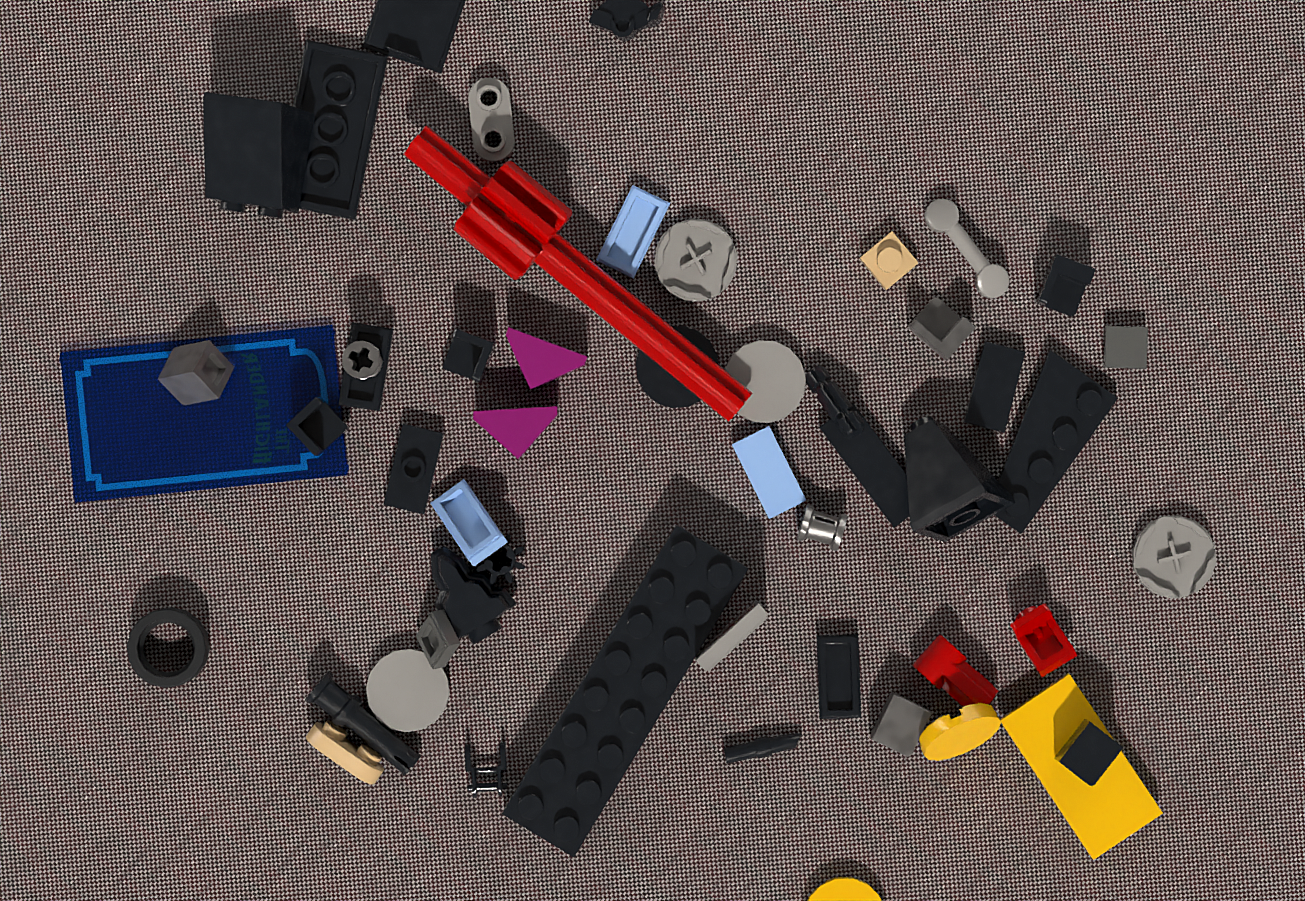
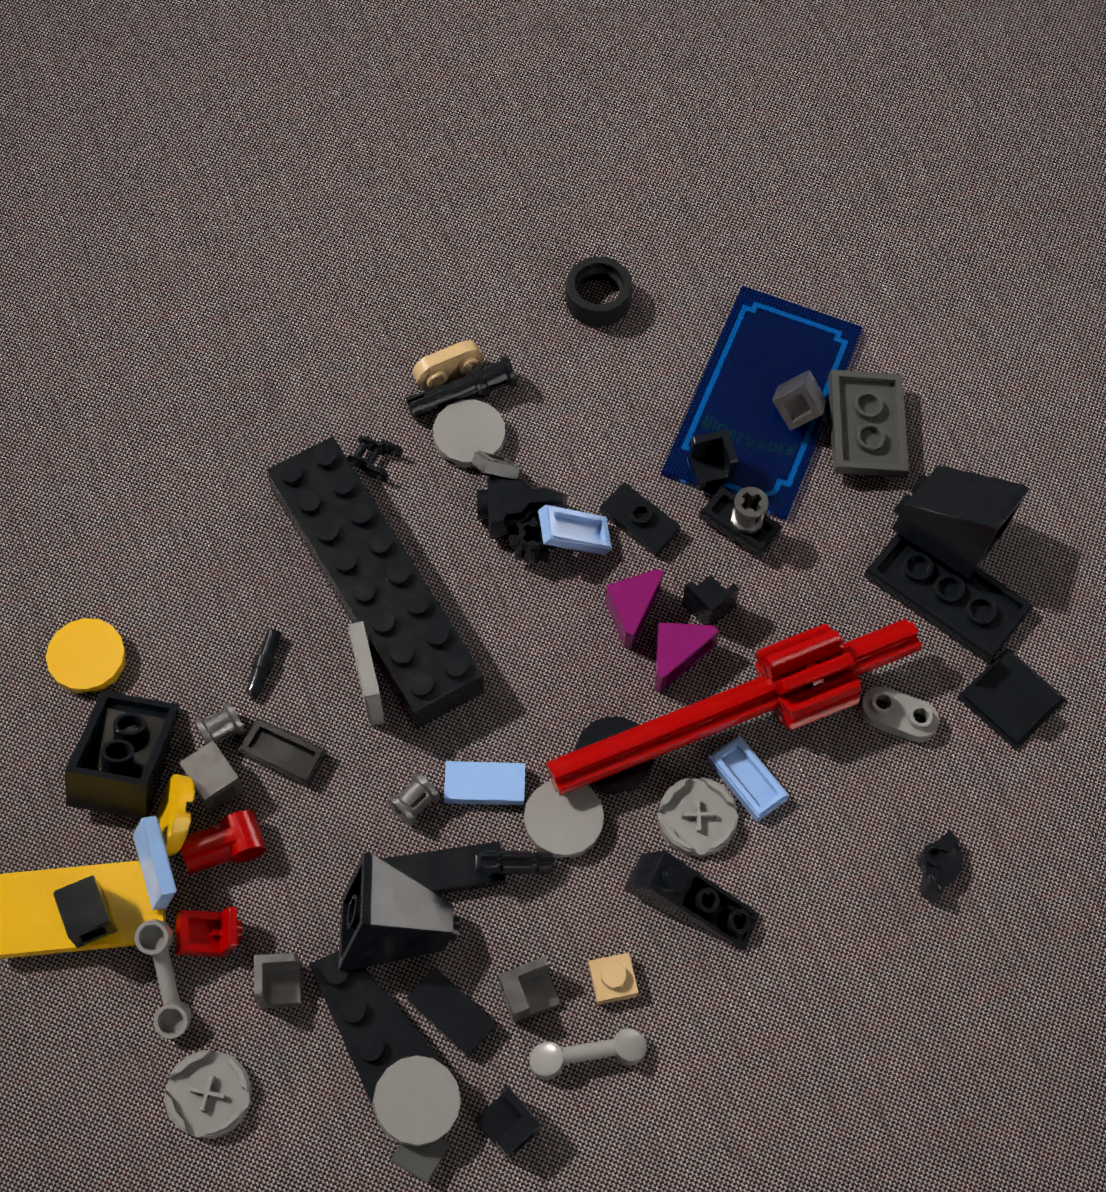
camera: 120 degrees right, 25 degrees down
(183, 292) = (868, 423): none -> dark grey plate
(782, 225) = (691, 898): none -> black slope
(848, 747) = (220, 725): none -> flat silver bush
(921, 820) = (121, 755): none -> black slope
(1013, 719) = (154, 862): none -> light blue tile
(1051, 551) = (277, 980): none -> flat silver panel
(1090, 371) = (416, 1101): none -> light grey tile
(1124, 626) = (154, 939): none -> light grey bar

